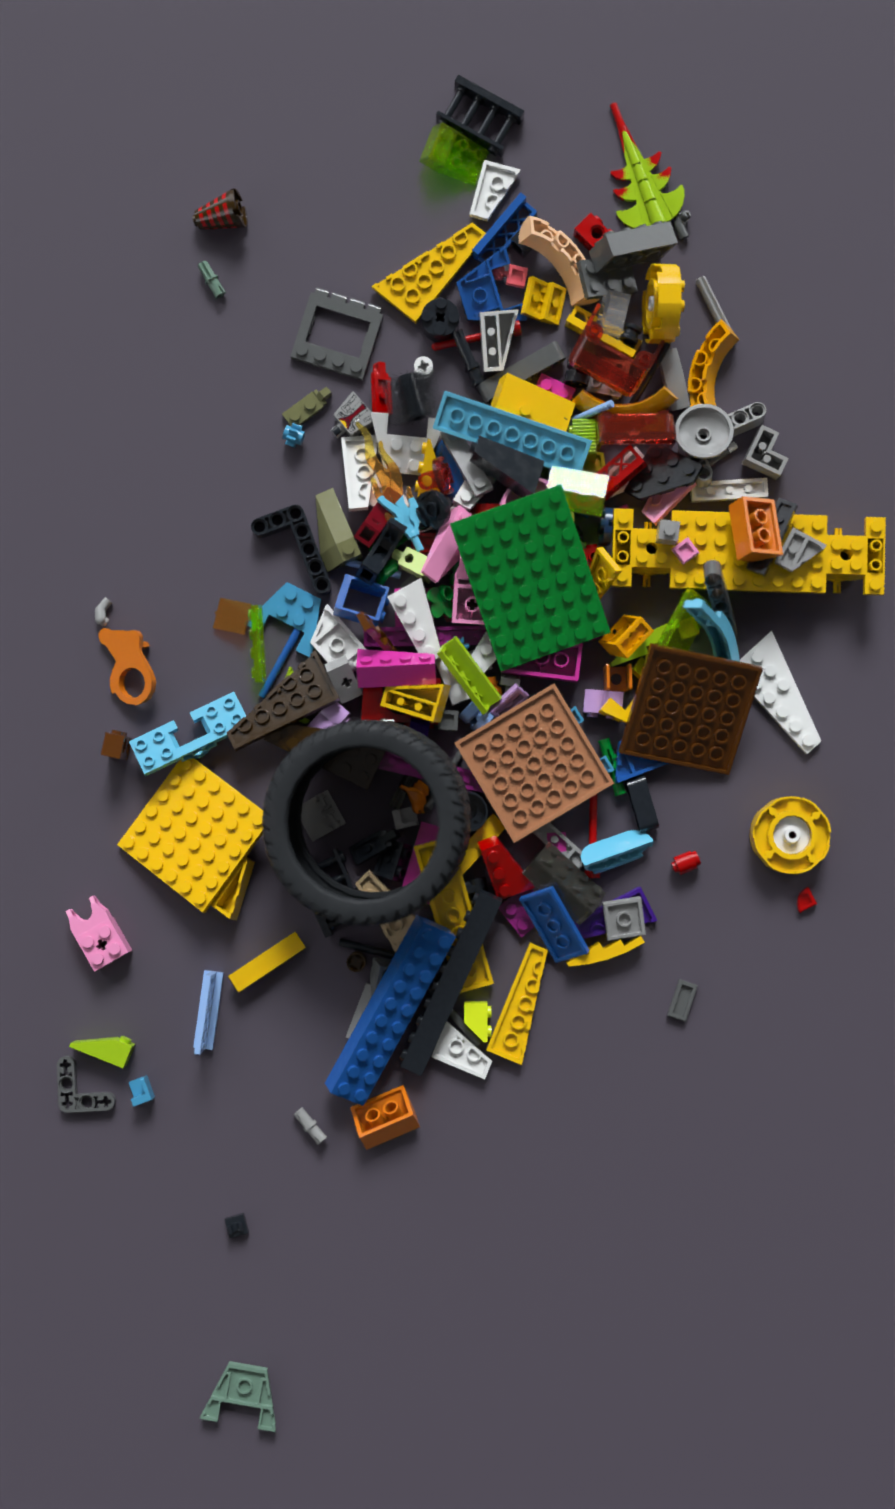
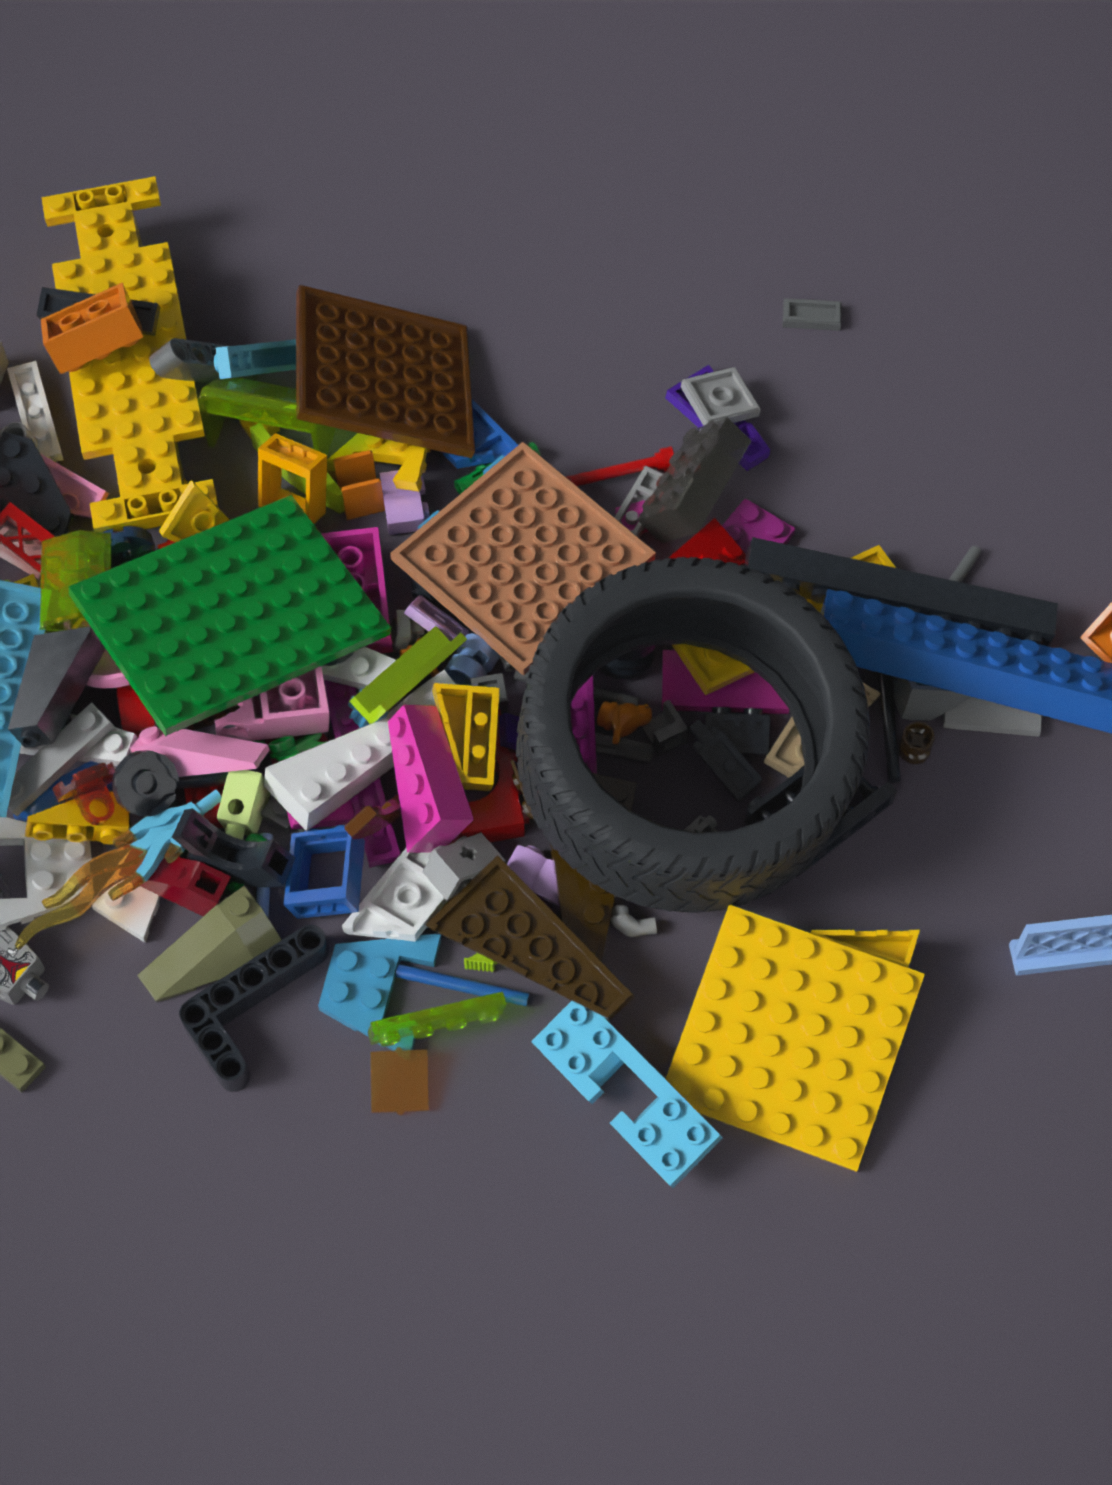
camera: 105 degrees left, 25 degrees down
(98, 928) = (1020, 1165): bright pink brick -> none
(100, 612) = (448, 1315): light grey arm -> none
(116, 745) = (683, 1208): reddish brown brick -> none
(127, 651) = (510, 1237): orange animal -> none
(266, 962) = (970, 875): yellow slope -> none
(293, 435) = (55, 1055): dark azure gear -> none
(357, 472) = (100, 935): white wing -> none
(460, 1052) = (1002, 559): white wing -> none
(476, 1018) = (940, 553): neon yellow slope -> none
(515, 1019) = (924, 509): yellow wing -> none
(554, 924) = (760, 479): blue tile -> none
(598, 953) = (782, 423): yellow slope -> none
(615, 851) = (621, 432): medium azure brick -> none
(642, 803) = (544, 417): black beam -> none
(667, 532) = (118, 438): light grey brick -> none
(685, 551) = (142, 416): bright pink tile -> none
(685, 862) = (611, 347): red brick -> none
(780, 695) = (350, 275): white wing -> none
(798, 549) = (107, 271): light grey wing -> none
(805, 900) = (618, 204): red tile -> none
(809, 835) = (531, 231): yellow piece -> none

